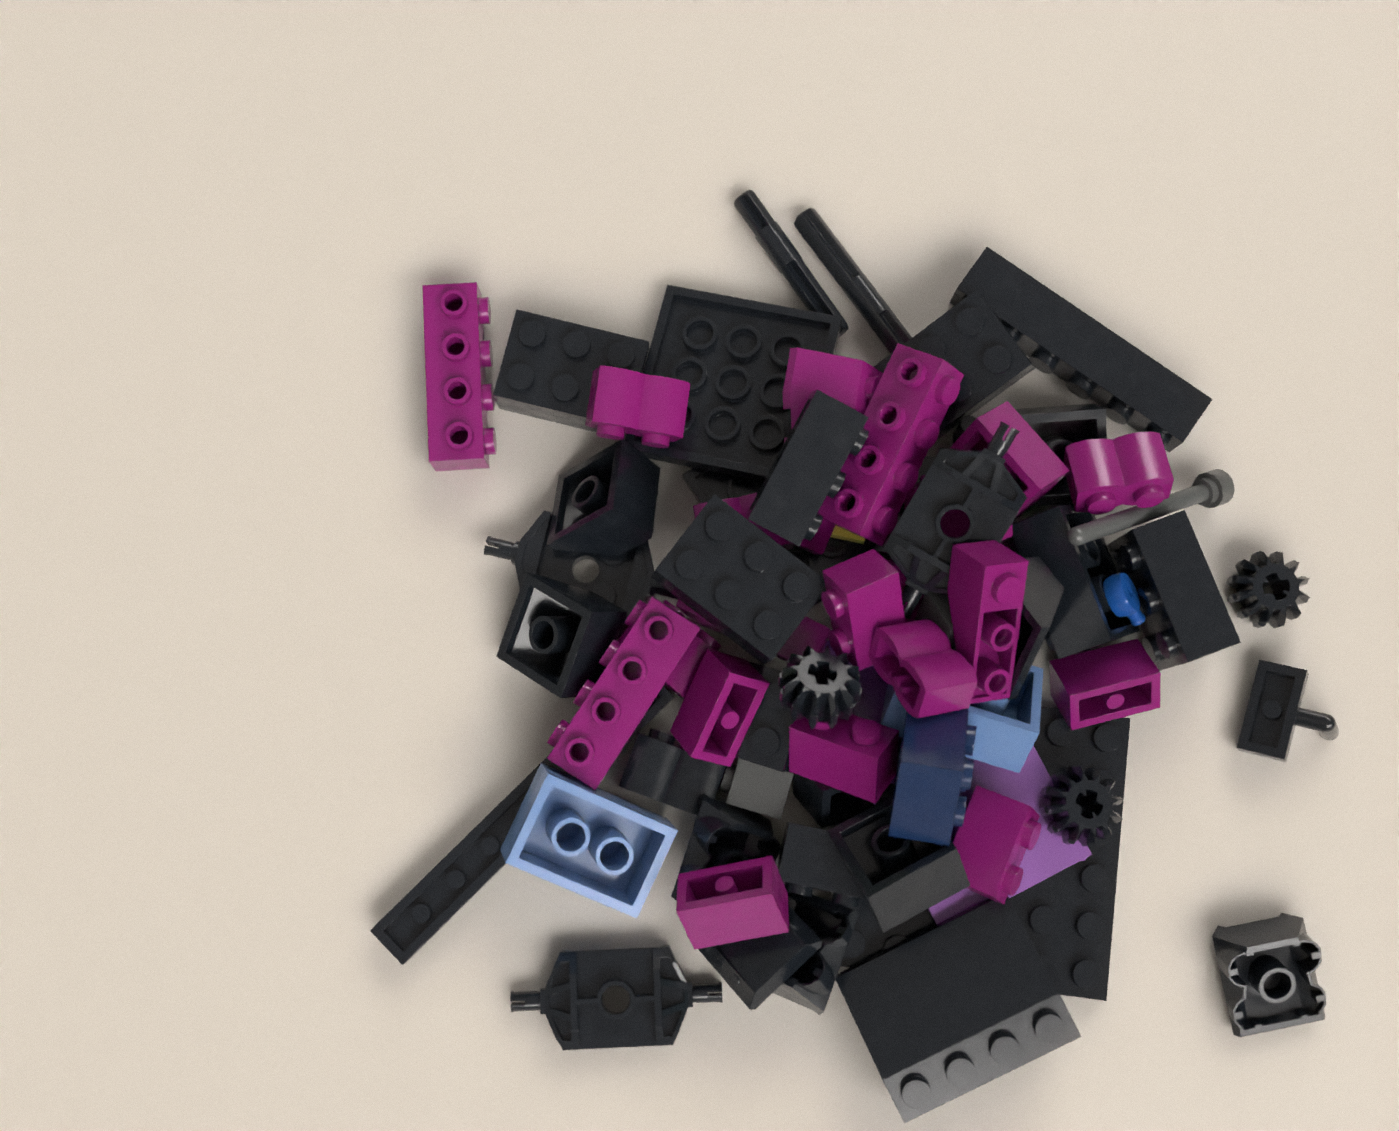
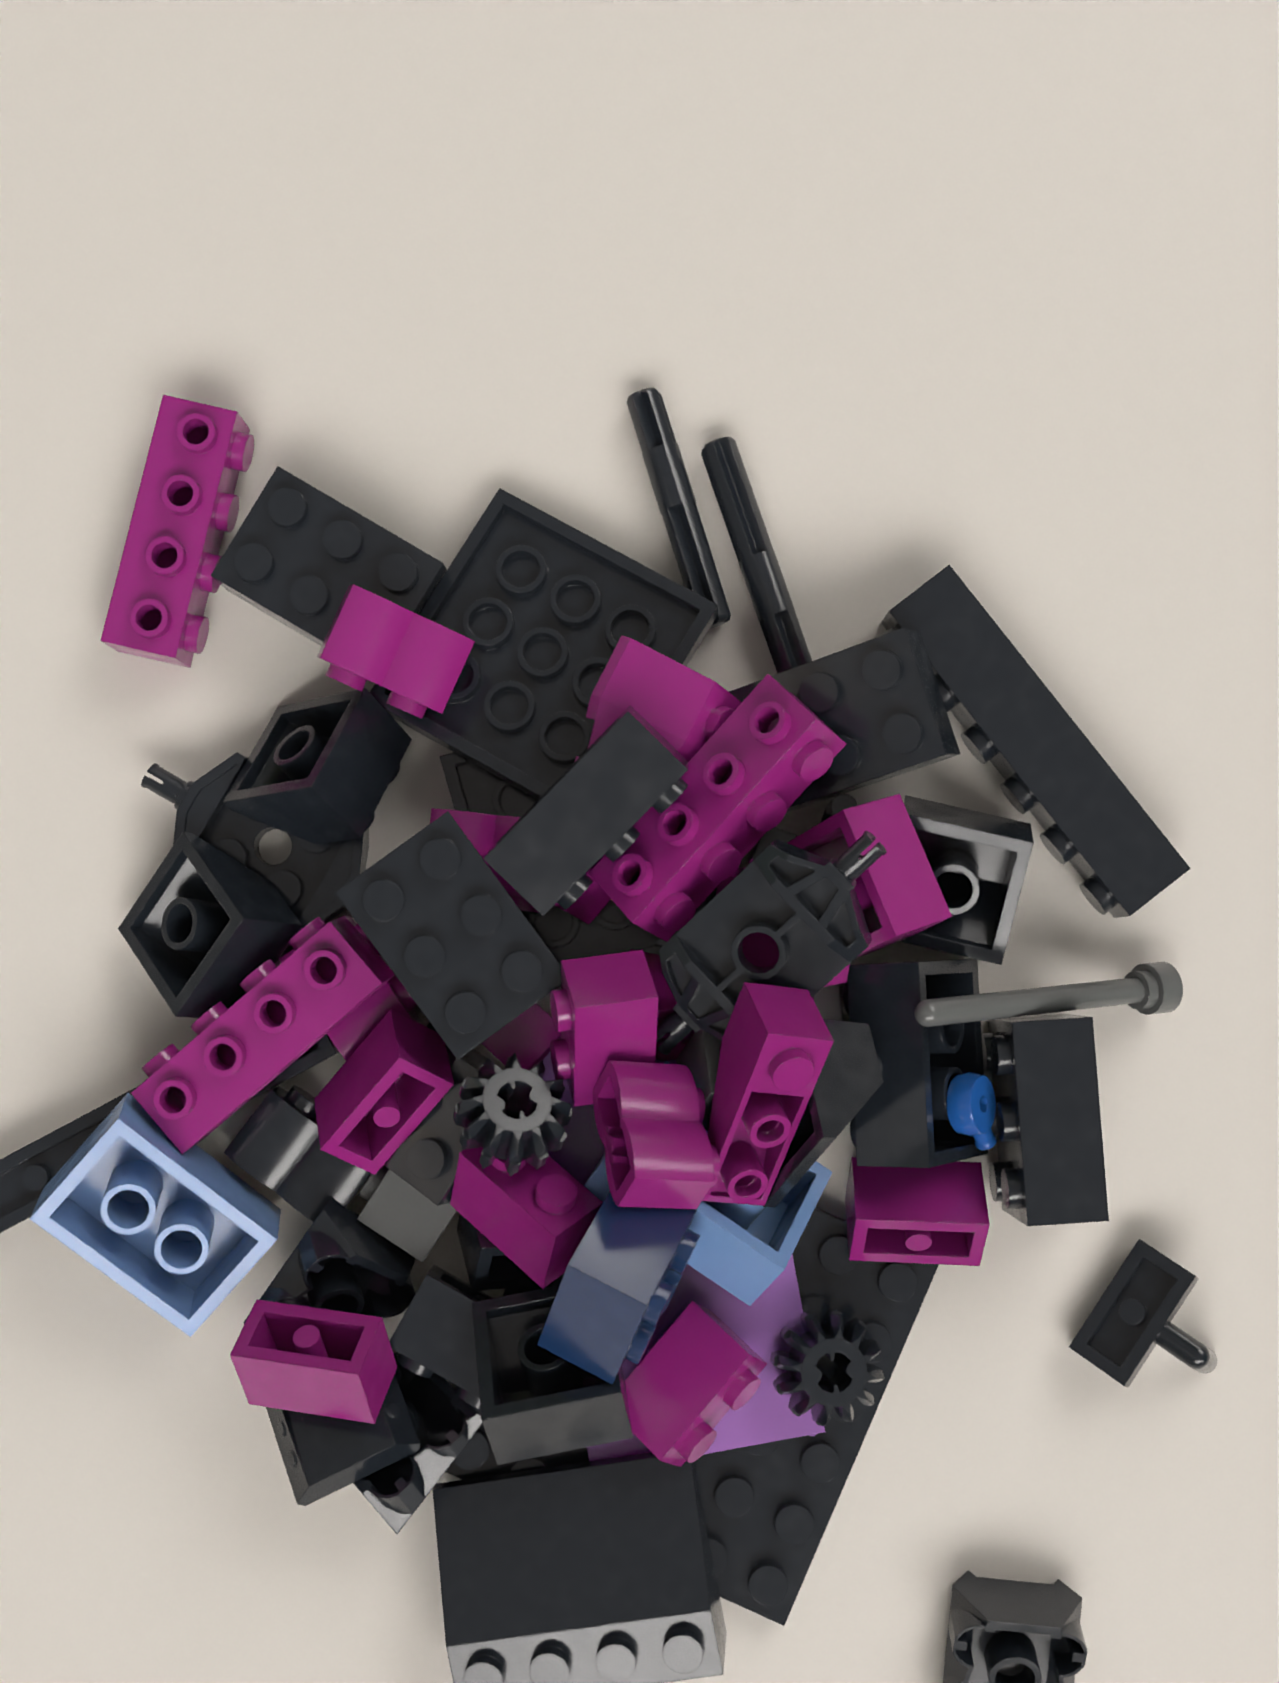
camera: 20 degrees right, 5 degrees up
(649, 975) = (193, 1412): black plate -> none
(1118, 472) = (1018, 938): magenta brick -> none
(1268, 572) = (1207, 1151): black gear -> none

